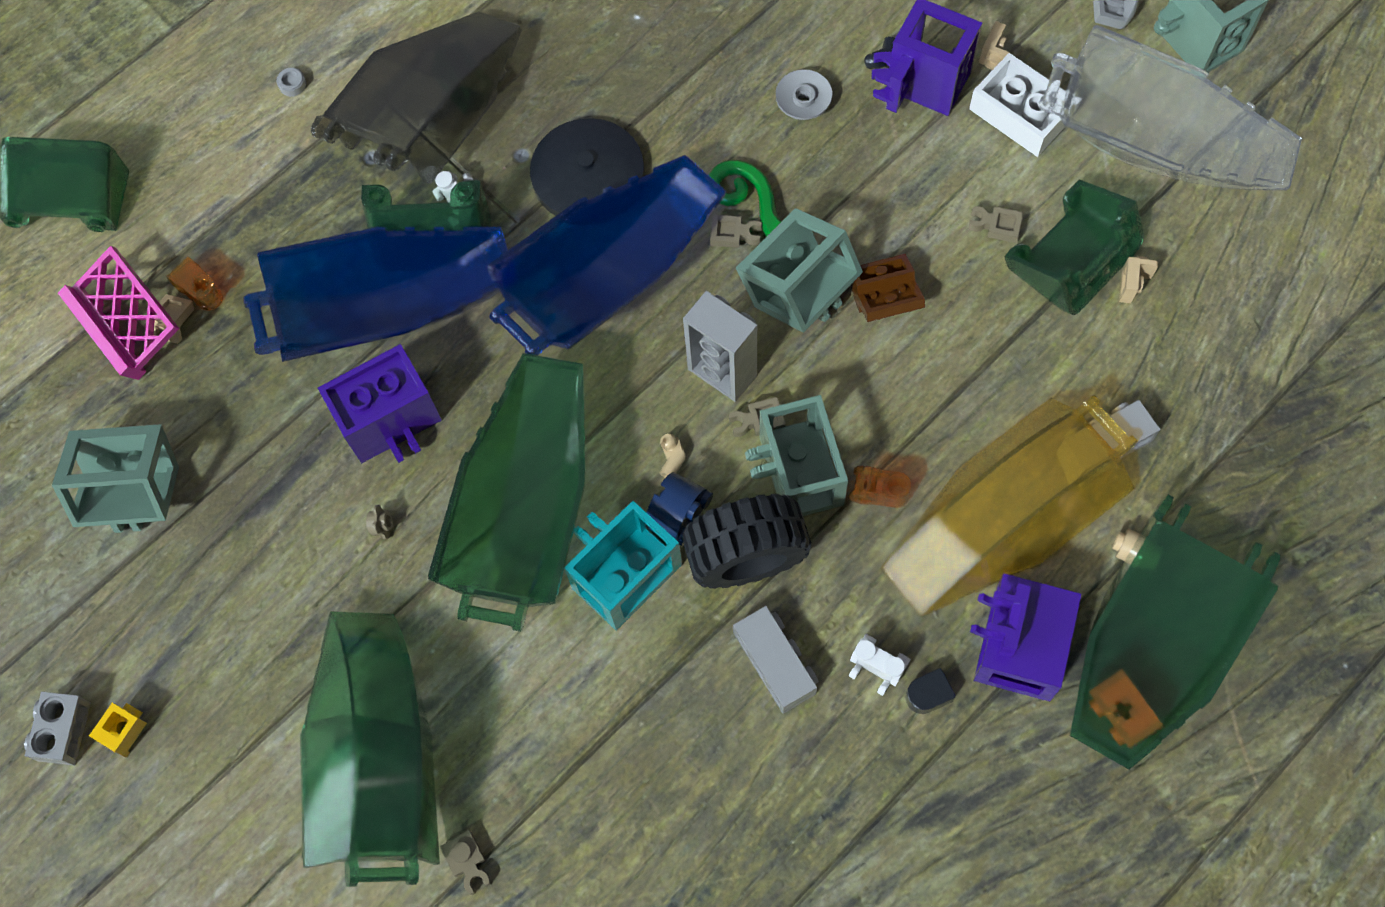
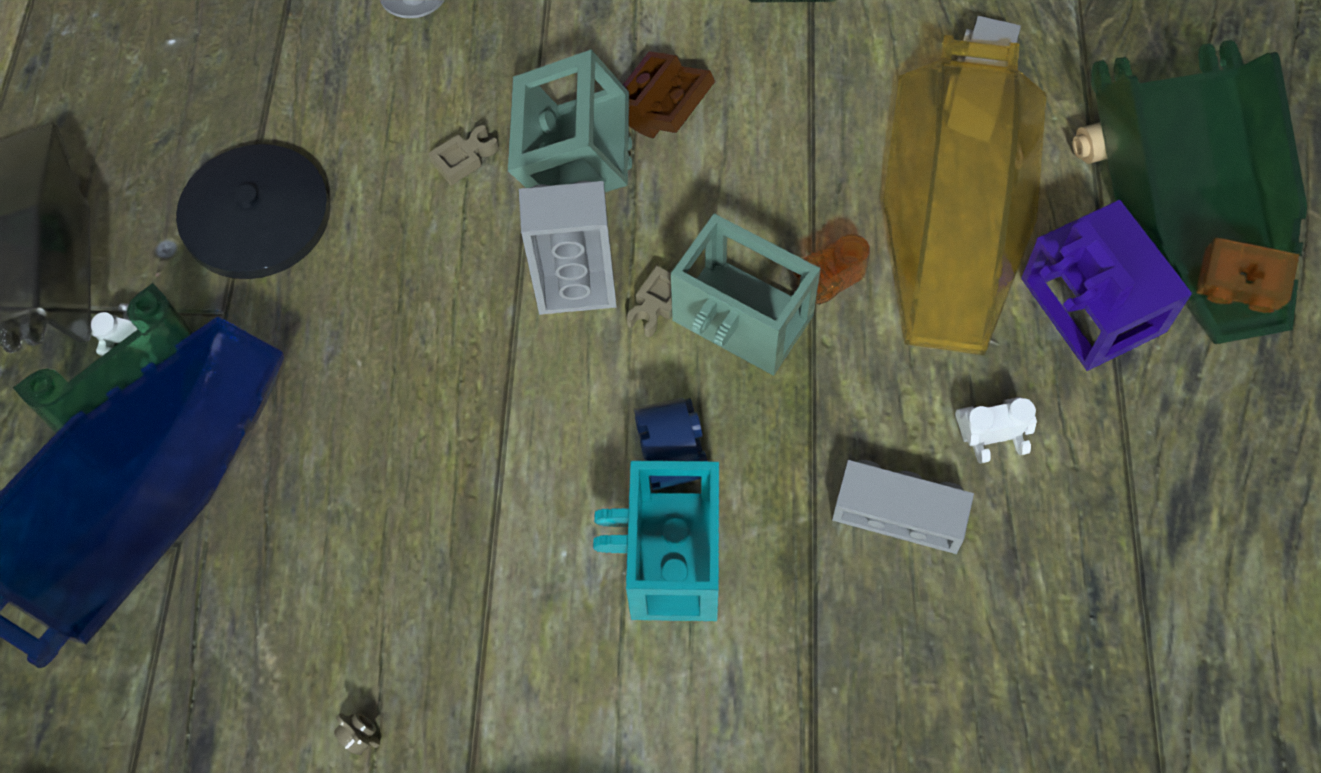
camera: 45 degrees left, 5 degrees down
(380, 405) = (245, 603): dark purple piece -> none
(517, 495) = (502, 565): clear green windscreen -> none
(601, 254) = (355, 267): clear blue windscreen -> none
(674, 453) = (607, 401): tan arm -> none
(746, 541) = (777, 407): black tyre -> none
(766, 197) = (496, 121): green plant -> none
(929, 692) = (1066, 412): black piece -> none

